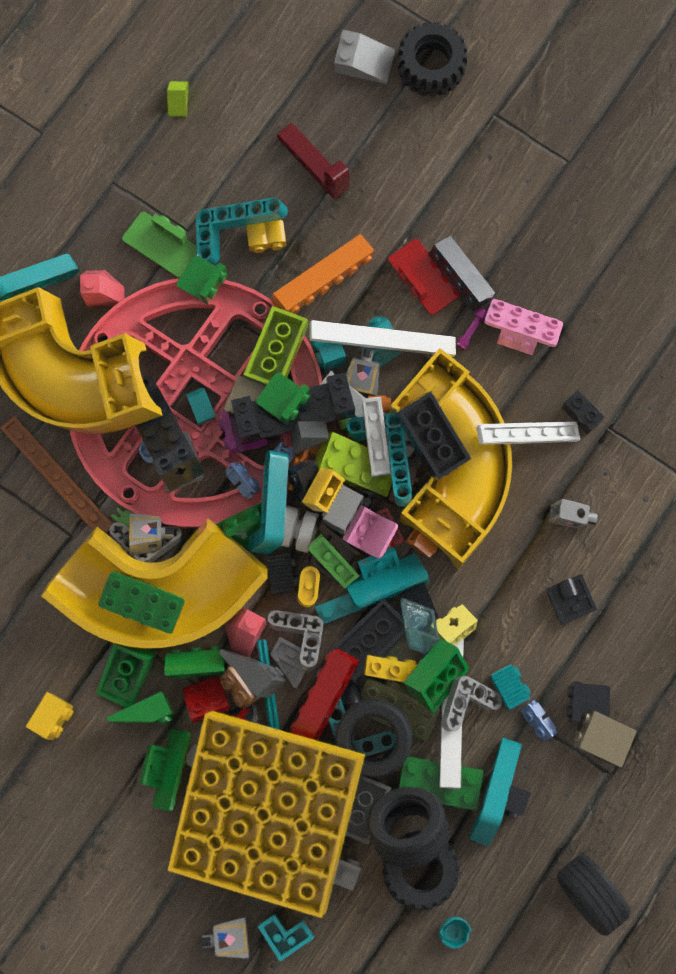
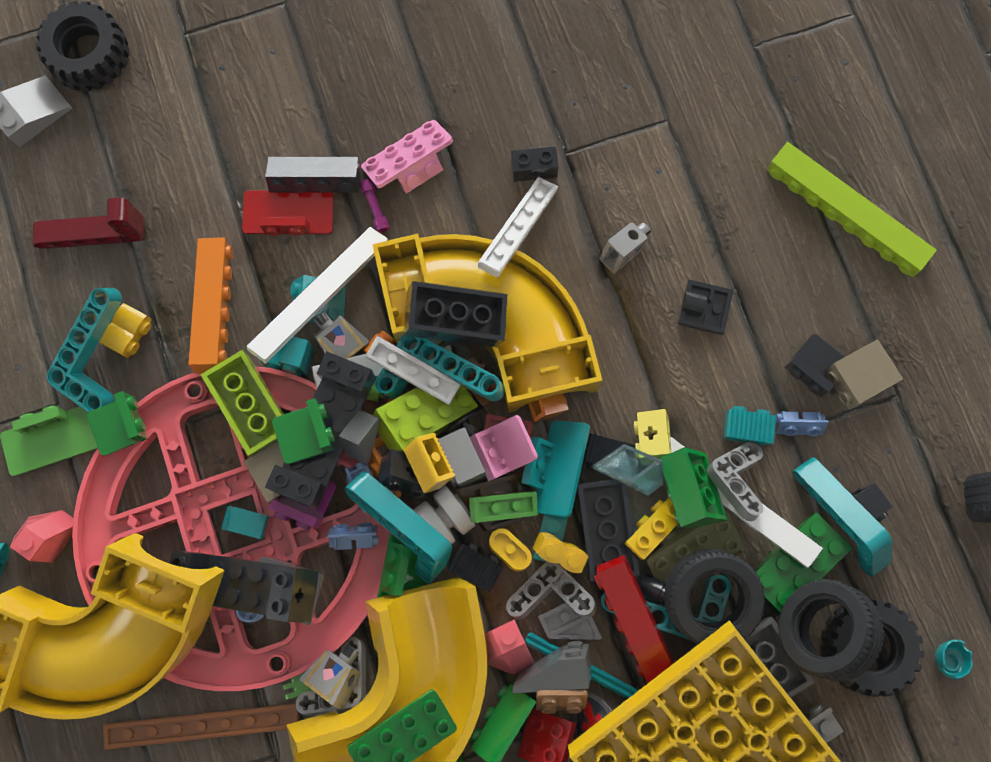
camera: 50 degrees left, 0 degrees up
(329, 614) = (564, 553): none -> yellow brick

